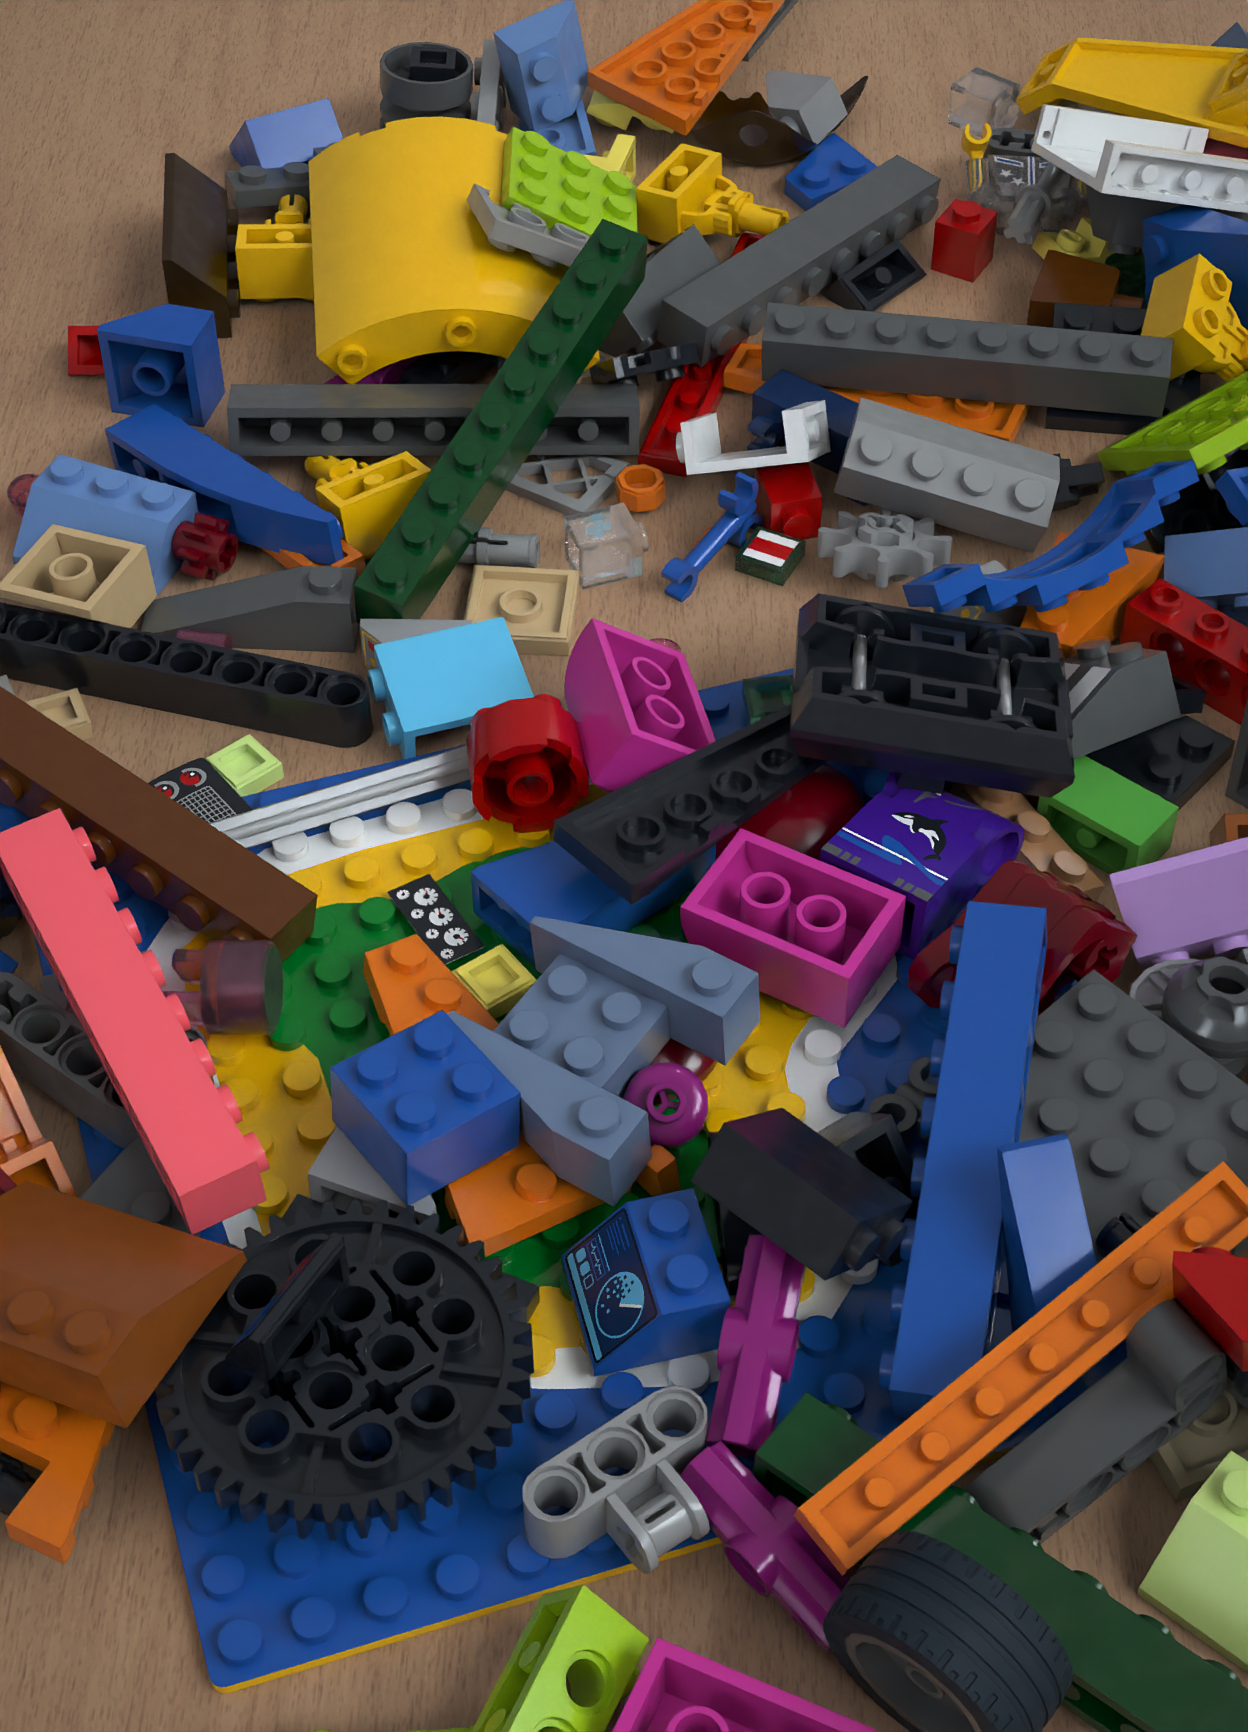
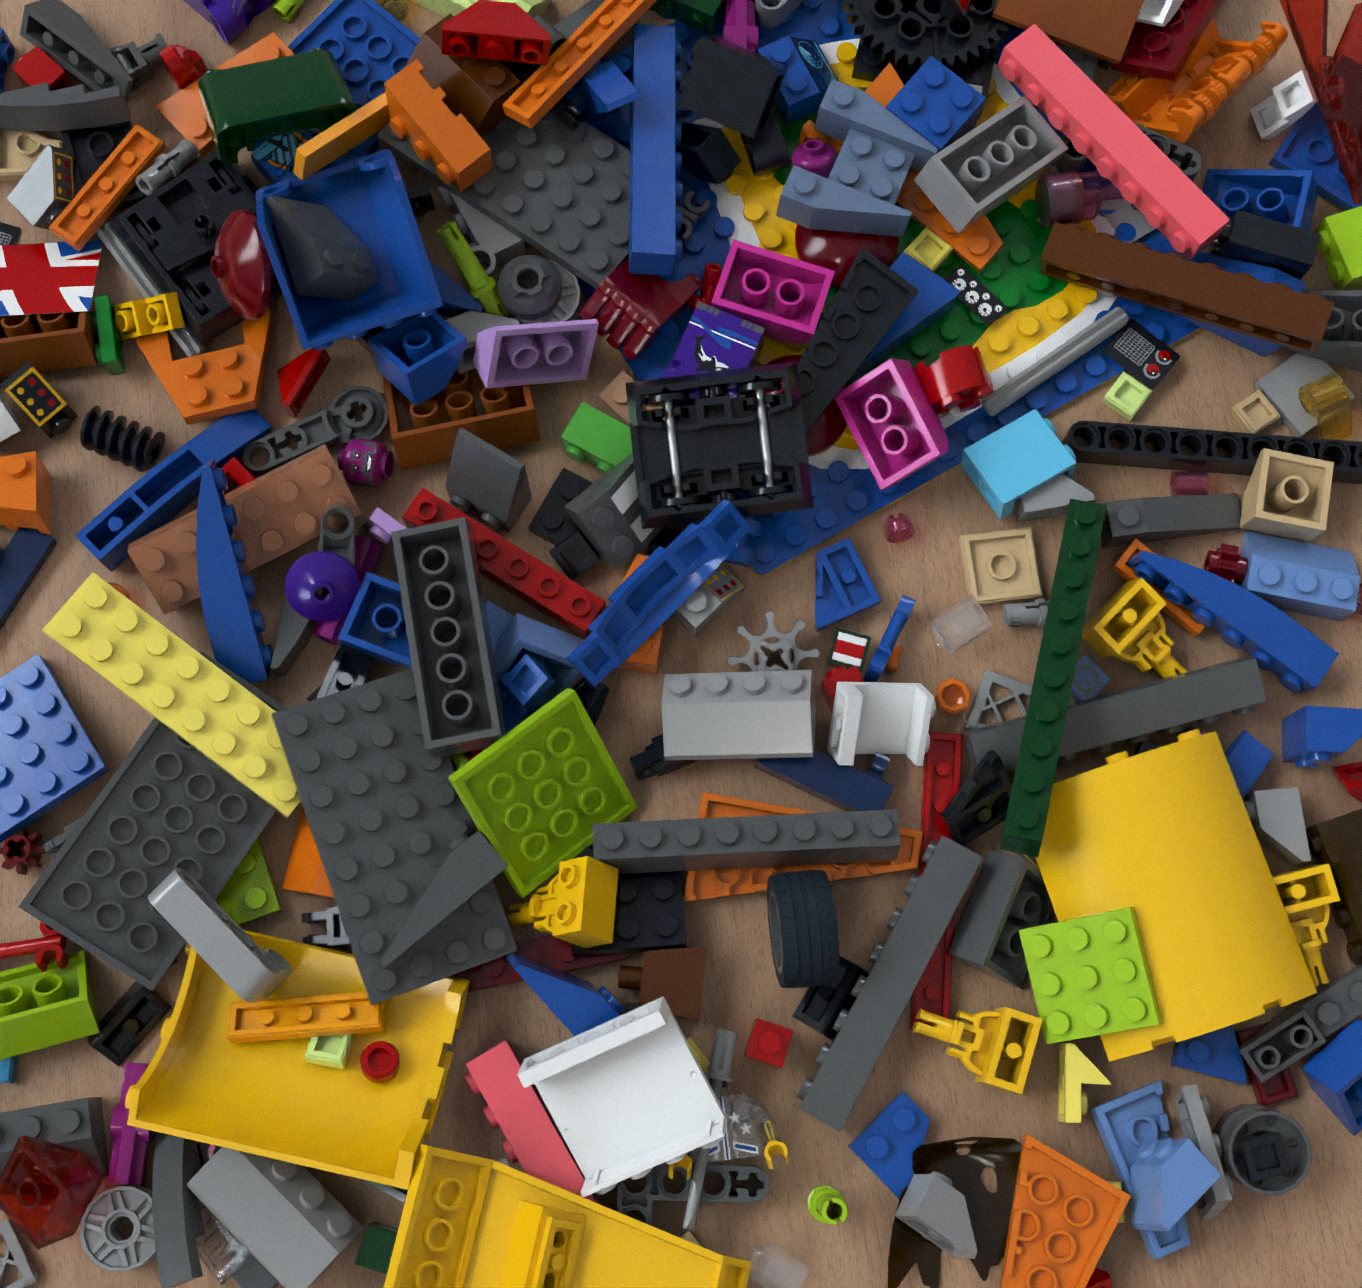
camera: 165 degrees right, 30 degrees up
(266, 328) = (1279, 822): none -> light grey slope
(289, 367) = (1247, 760): none -> blue slope
(352, 996) = (990, 164): none -> light grey brick
(525, 230) = (1092, 877): light grey wing -> none
(762, 612) = (841, 585): none -> blue wing
(766, 695) = (824, 495): tile -> none
(892, 976) = (709, 283): none -> red arm
(907, 259) = (803, 928): none -> black wheel
(923, 116) = (820, 1198): none -> lime pin

